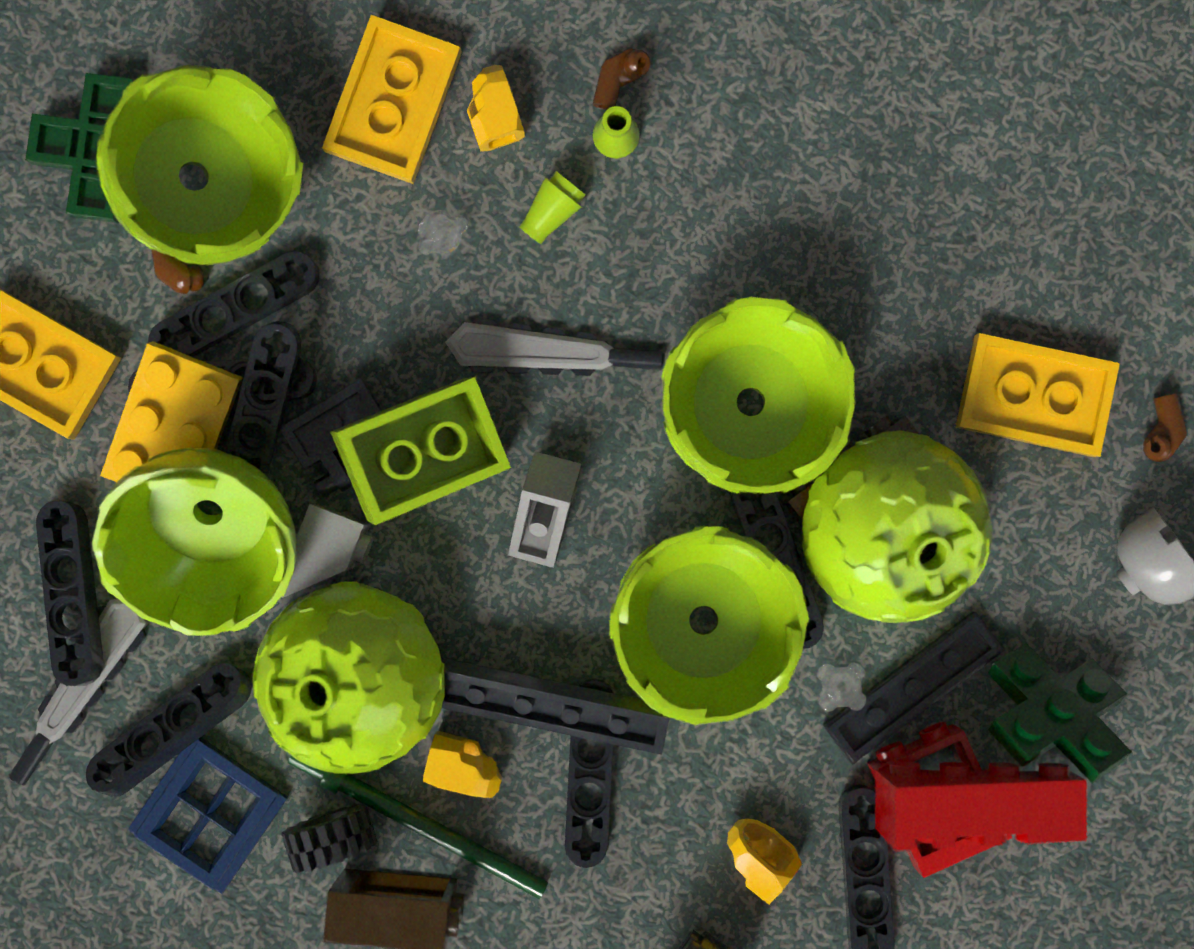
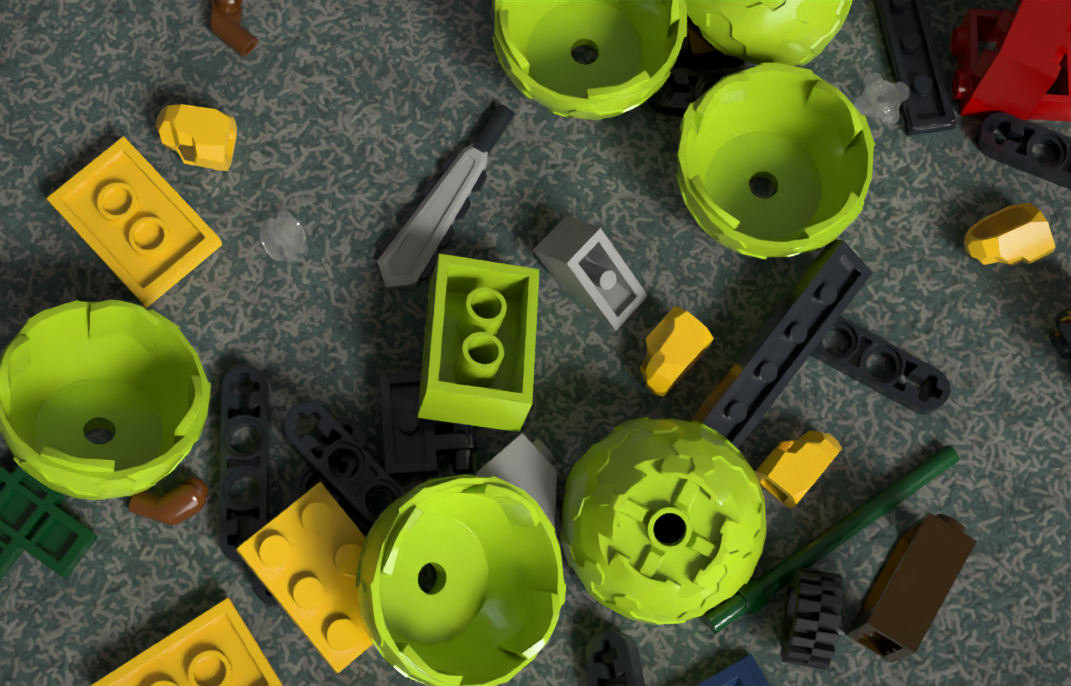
camera: 70 degrees left, 15 degrees down
(507, 614) = (673, 350): none -> yellow rock
(552, 206) = (314, 130): lime cone -> none
(616, 142) = (279, 44): lime cone -> none

